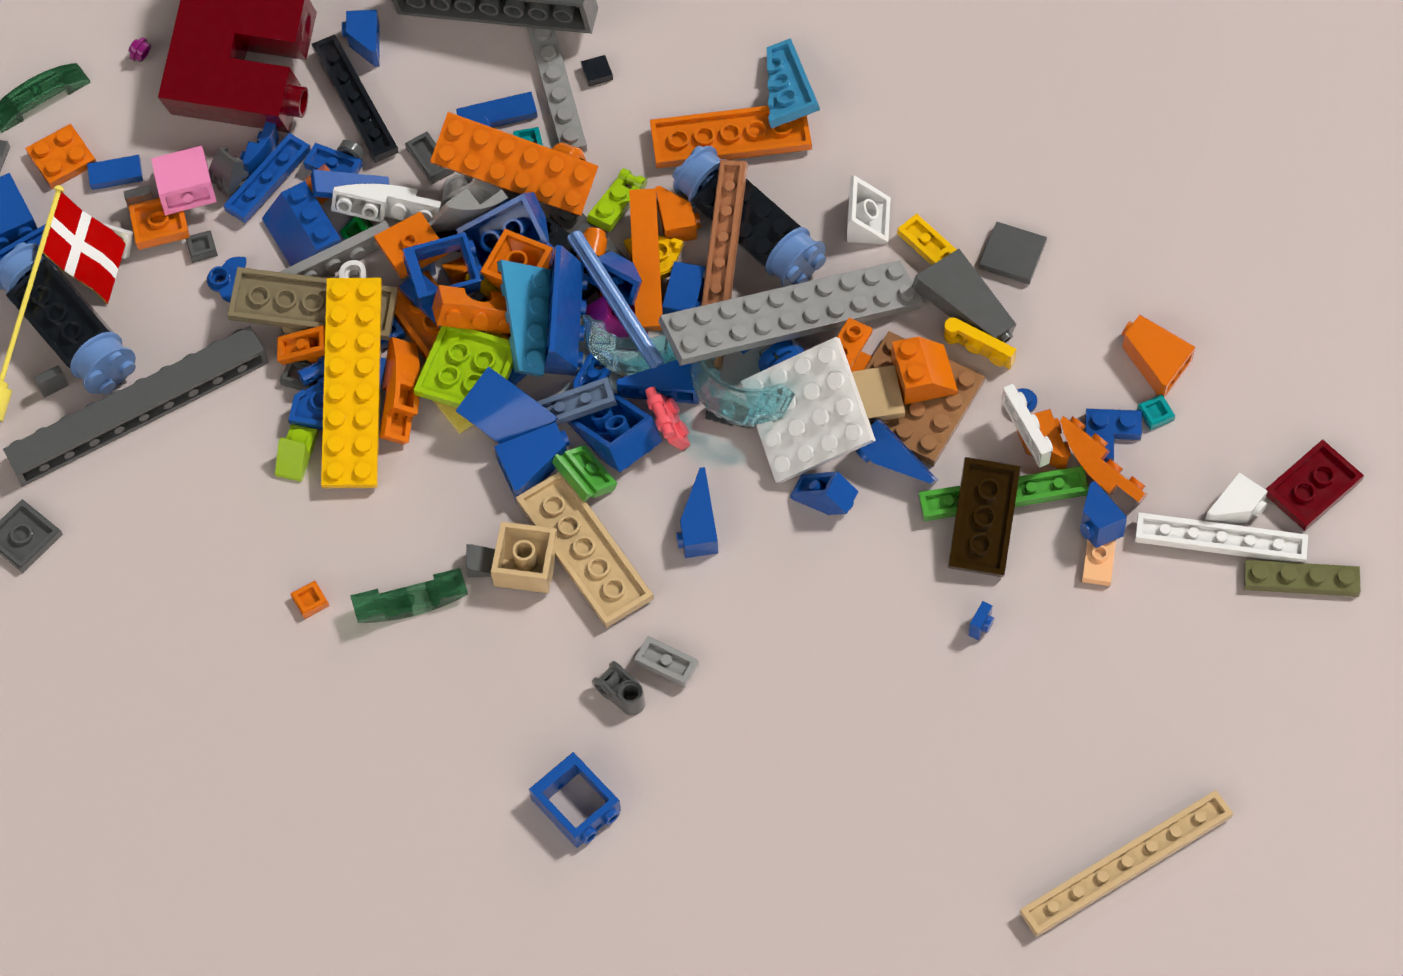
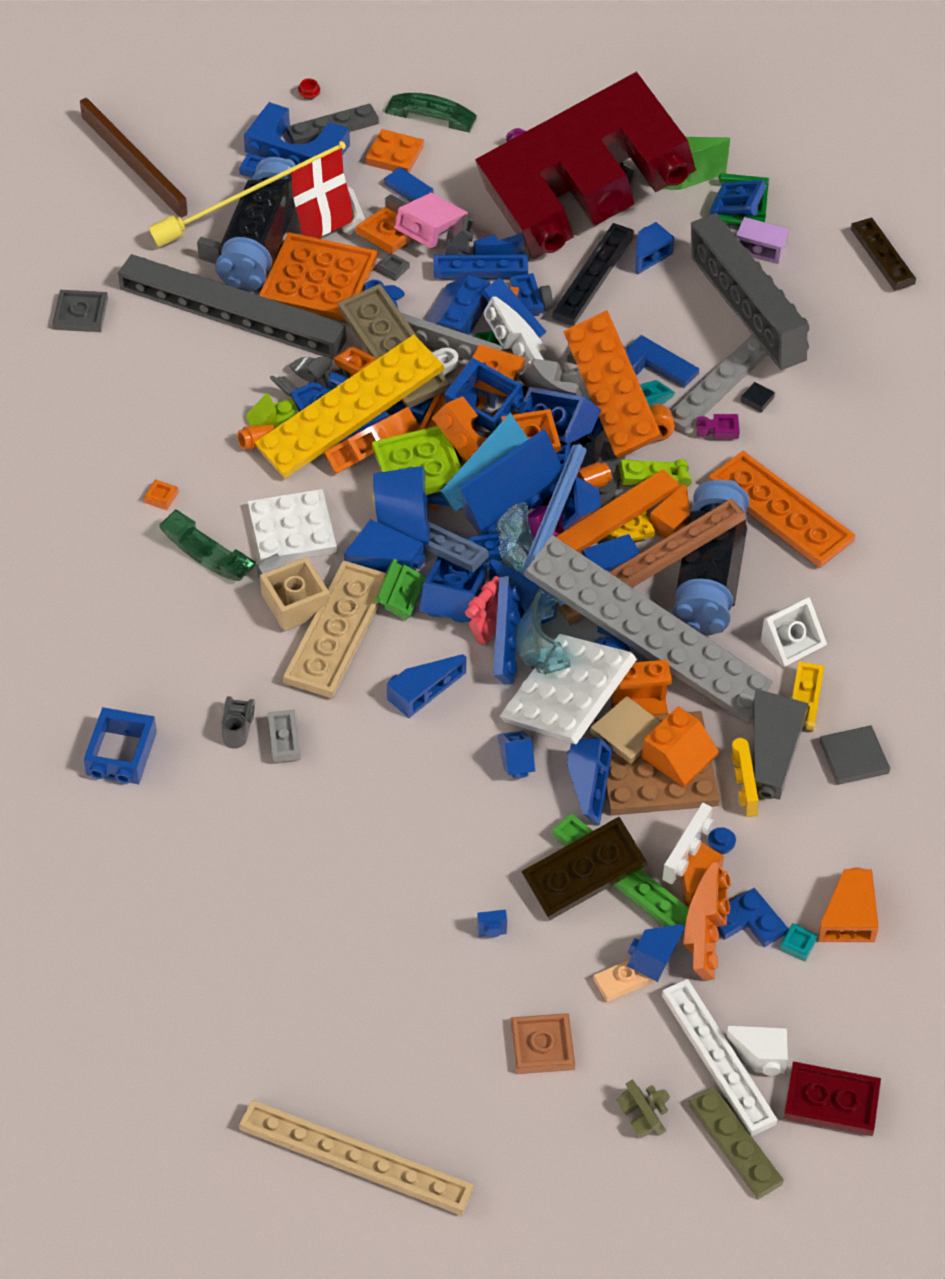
camera: 50 degrees right, 10 degrees down
(164, 312) = (318, 274): none -> orange plate
(261, 392) = (305, 367): none -> dark grey helmet
(309, 482) = (250, 434): none -> orange cone
(437, 515) = (292, 526): none -> white plate
(607, 116) = (722, 426): none -> magenta plate
(693, 409) = (507, 621): none -> blue plate
(788, 85) = (858, 515): dark azure wing -> none
(1116, 657) = (542, 1043): none -> nougat tile
(1218, 621) = (648, 1121): none -> olive hips

